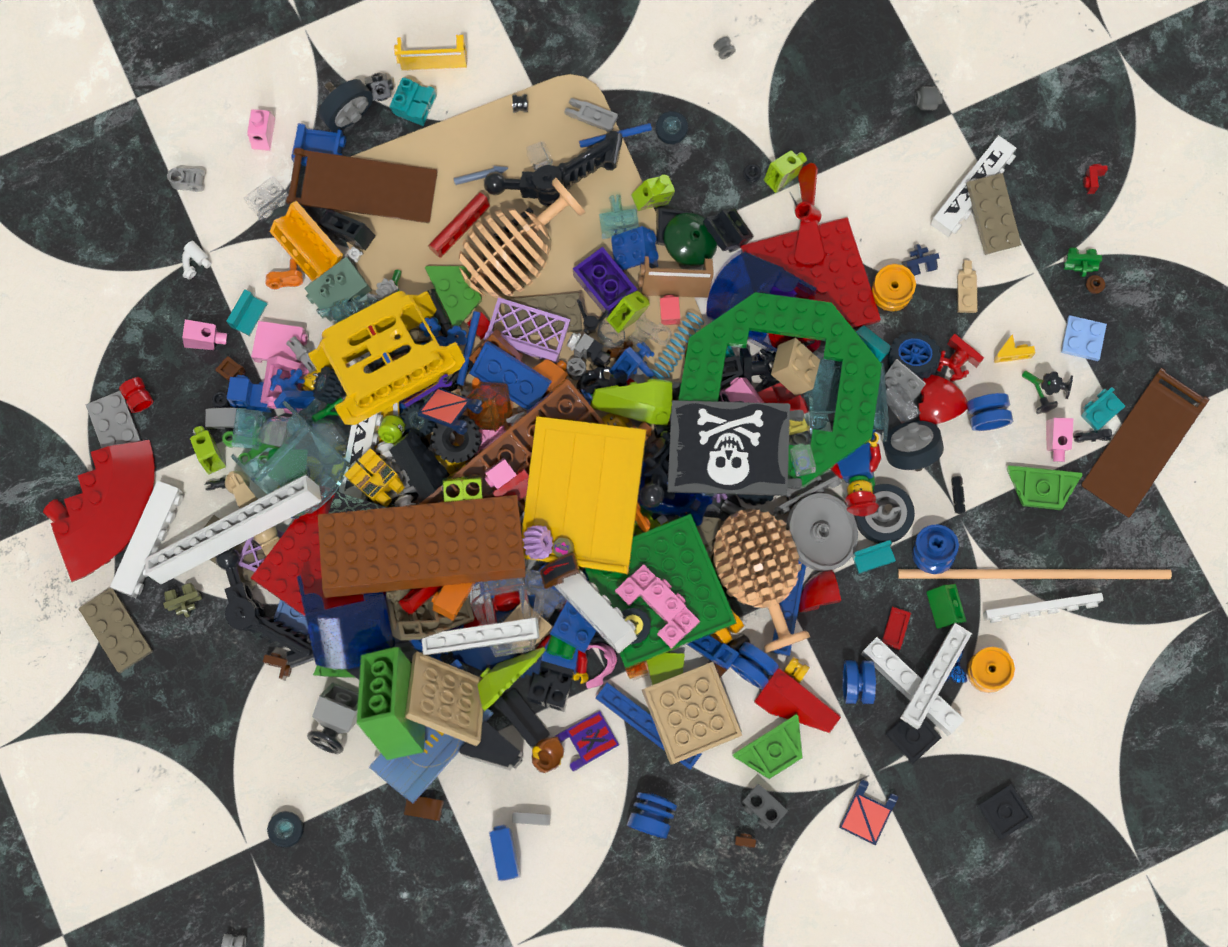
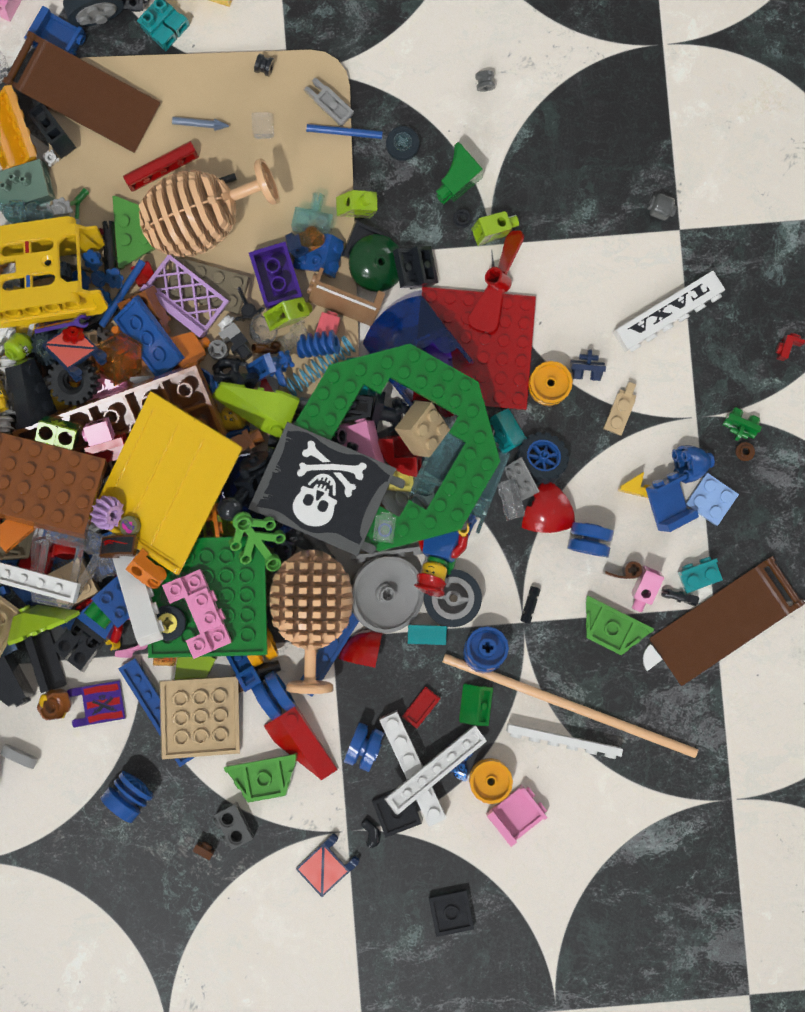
camera: 15 degrees right, 10 degrees up
(442, 395) = (73, 334): none -> red plant
(539, 183) = (245, 153): black piece -> none
(596, 581) = (146, 570): none -> orange leg
(620, 240) = (305, 241): none -> leg
(669, 327) = (318, 345): none -> blue piece
(685, 515) = (256, 538): none -> bright green plant
(711, 528) = (283, 551): none -> black bar
(738, 134) = (461, 176): none -> green hips
(801, 670) = (314, 716): yellow wheel -> none
(899, 763) = (373, 833): none -> black arm
(913, 445) = (504, 545): black wheel -> none
(962, 353) = (584, 475): red piece -> none
(993, 213) = (676, 346): dark tan plate -> none
(1028, 694) = (516, 814): none -> bright pink panel
(1034, 432) = (626, 575): none -> reddish brown panel
(1045, 351) = (669, 503): none -> blue panel
(1051, 311) = (692, 461): none -> blue piece
(1051, 384) = (657, 536): black plant -> none
(1090, 501) = (650, 657): none -> white tile

